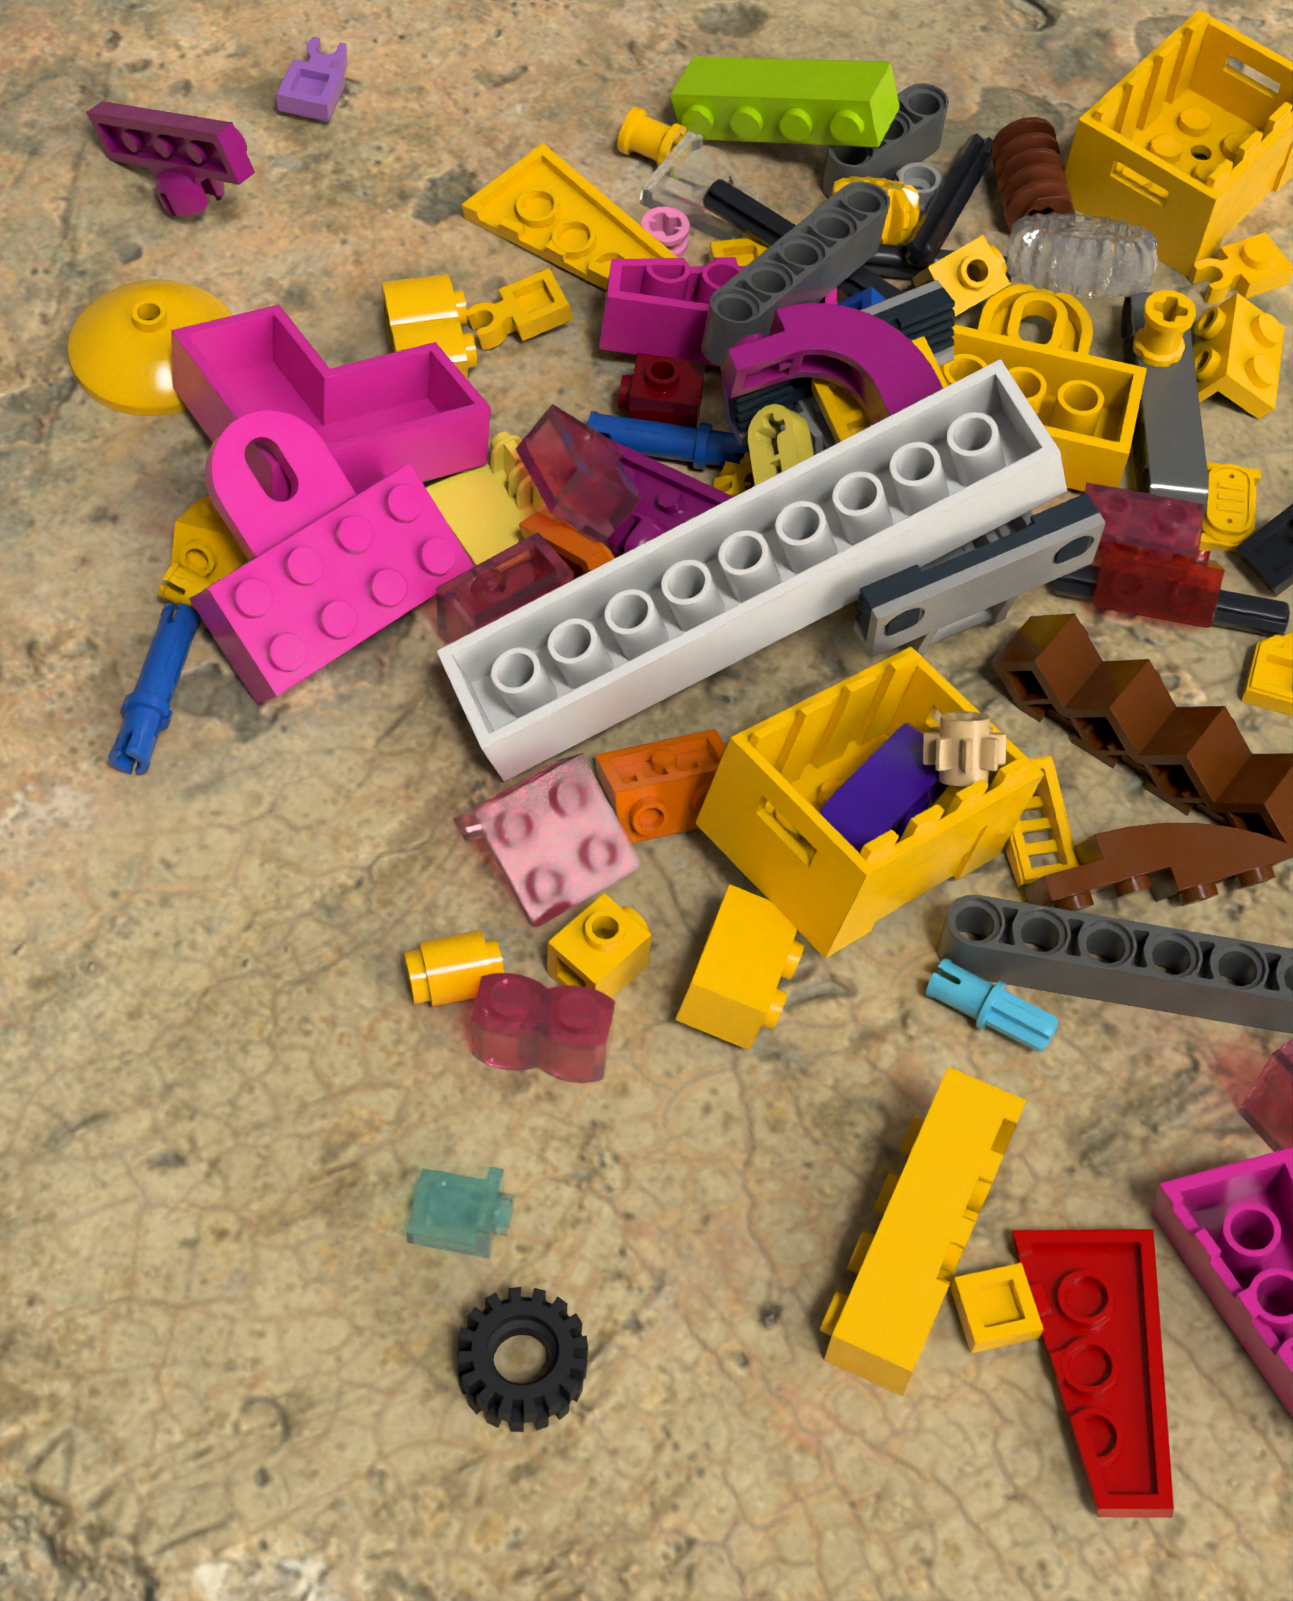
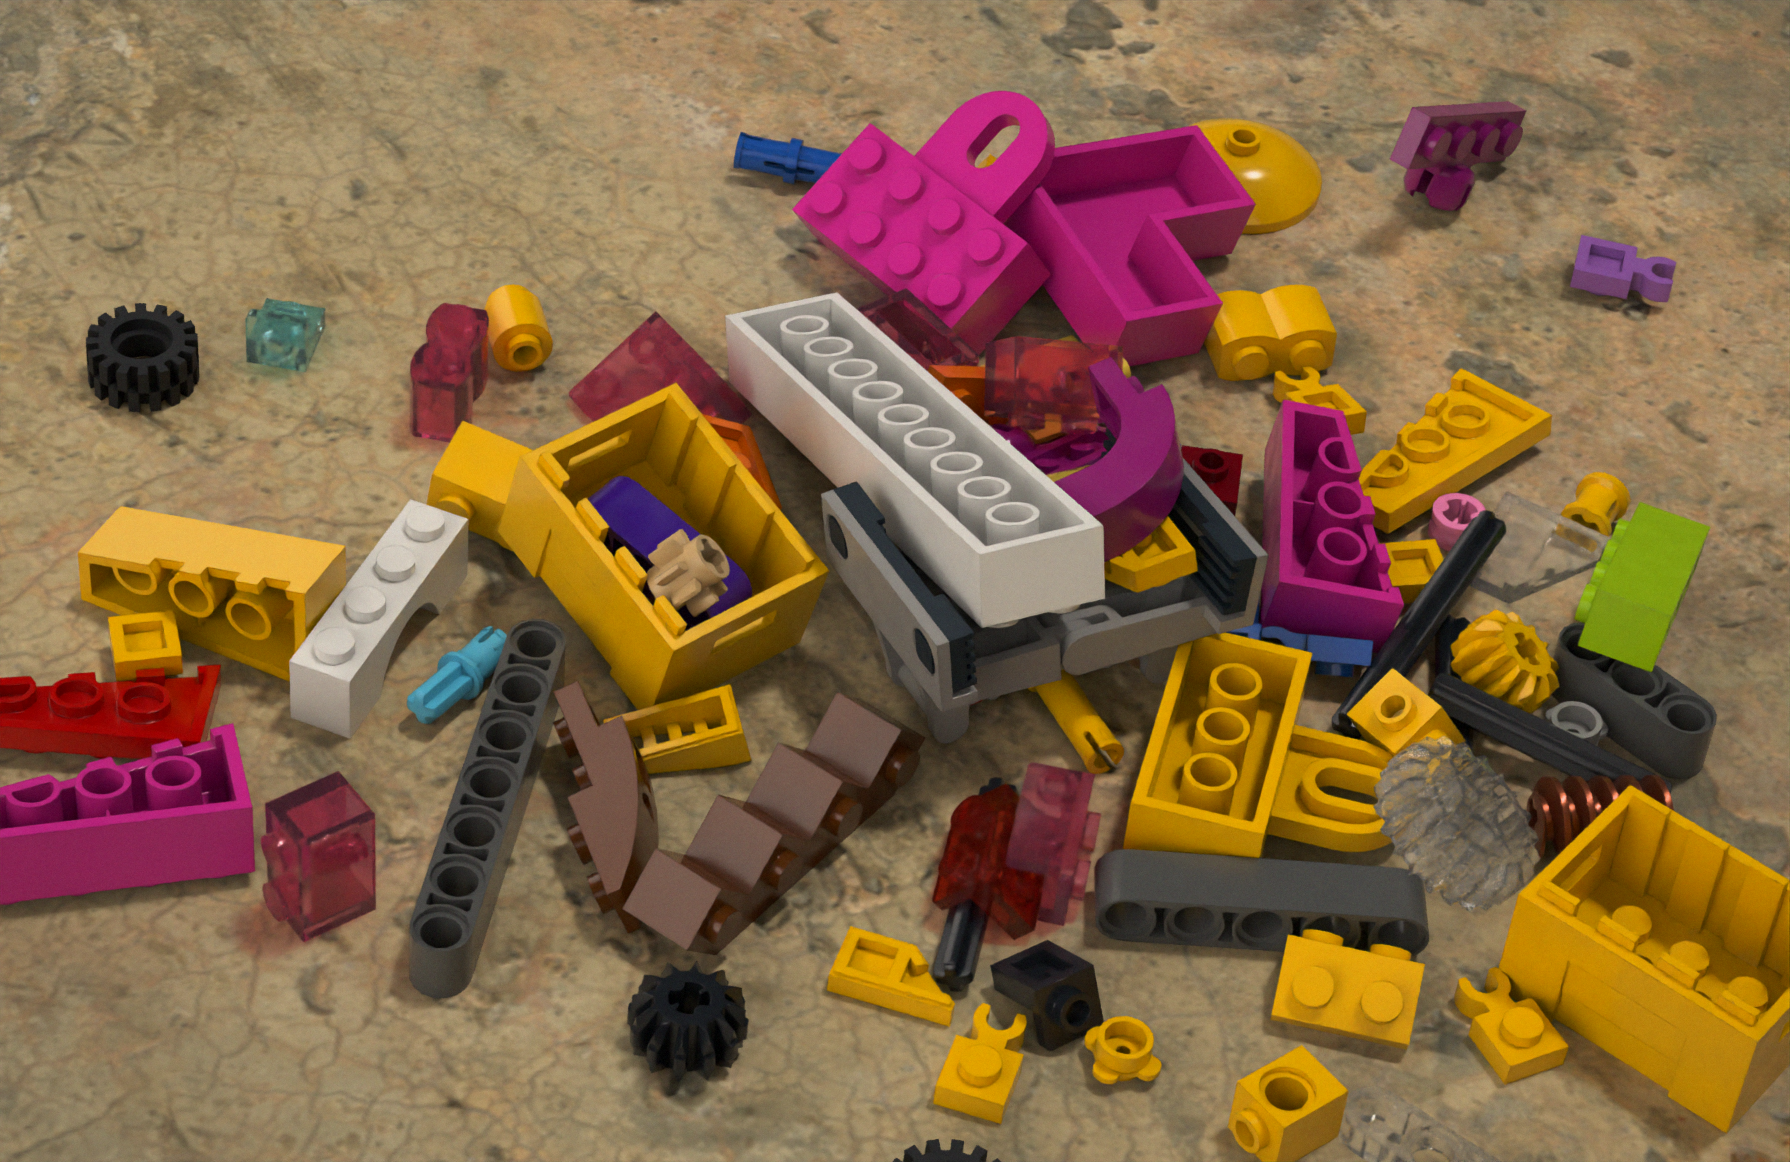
camera: 90 degrees right, 15 degrees down
(600, 948) = (527, 407): yellow brick -> none
(797, 267) = (1337, 532): dark grey beam -> none
(872, 1046) = (346, 655): none -> white arch
(1167, 318) = (1339, 858): yellow bush -> none
(1230, 506) = (1132, 959): yellow piece -> none

